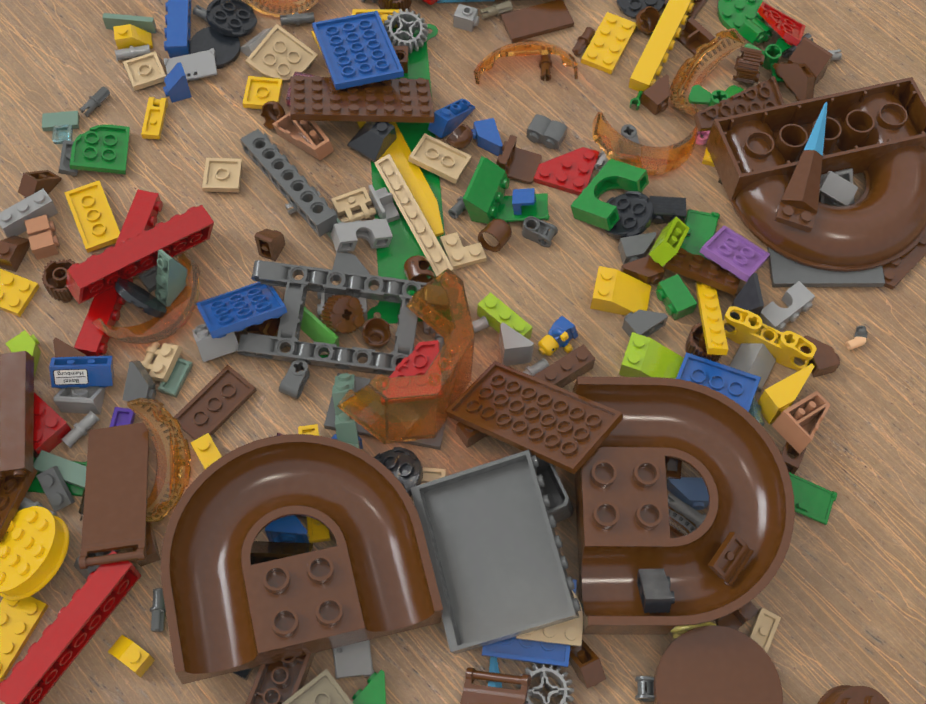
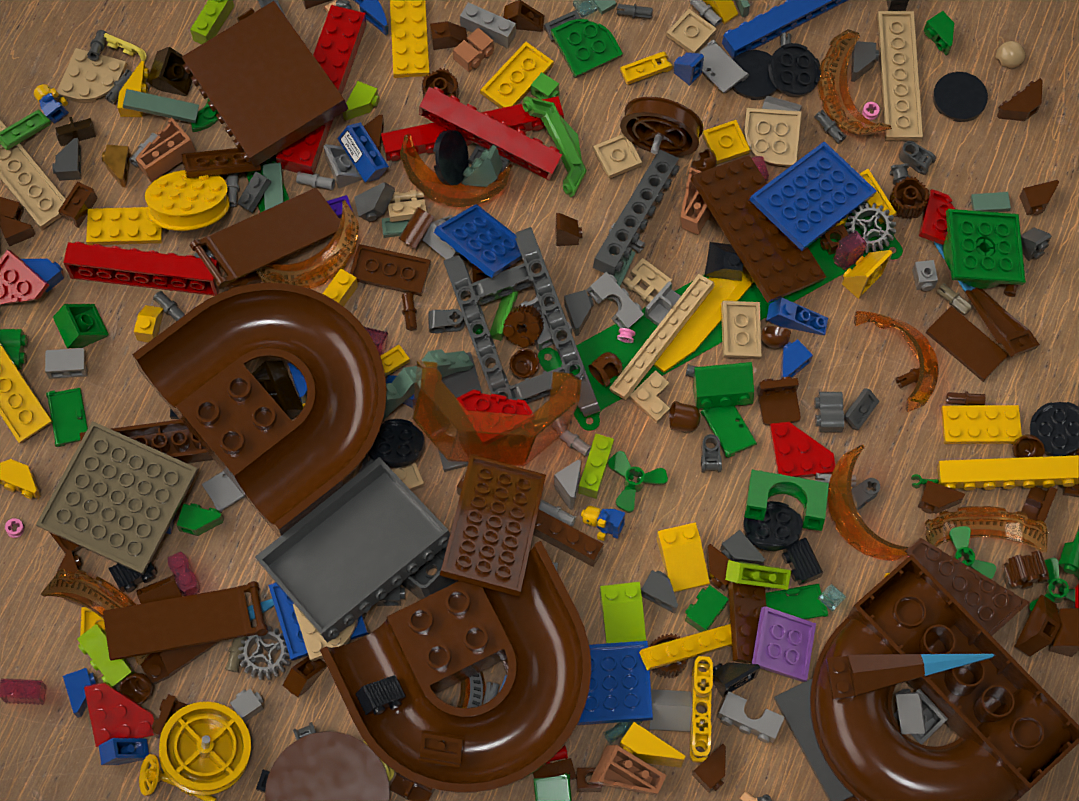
camera: 65 degrees right, 5 degrees up
(120, 198) = (544, 87): none -> bright green brick
(126, 626) = (170, 307): none -> dark grey pin
(180, 203) = (564, 138): none -> bright green helmet
(190, 359) = (416, 227): none -> reddish brown brick
(225, 118) = (661, 125): none -> reddish brown wheel
(266, 407) = (409, 311): none -> reddish brown axle
(395, 243) = (626, 335): none -> bright pink bush
(417, 51) = (849, 250): none -> clear pink brick
(444, 47) = (866, 272): none -> yellow slope
(522, 197) = (731, 422): blue panel -> none
(527, 300) = (621, 465): none -> green piece
(554, 108) = (861, 409): none -> dark grey plate
(706, 204) = (832, 597): none -> clear light blue plate

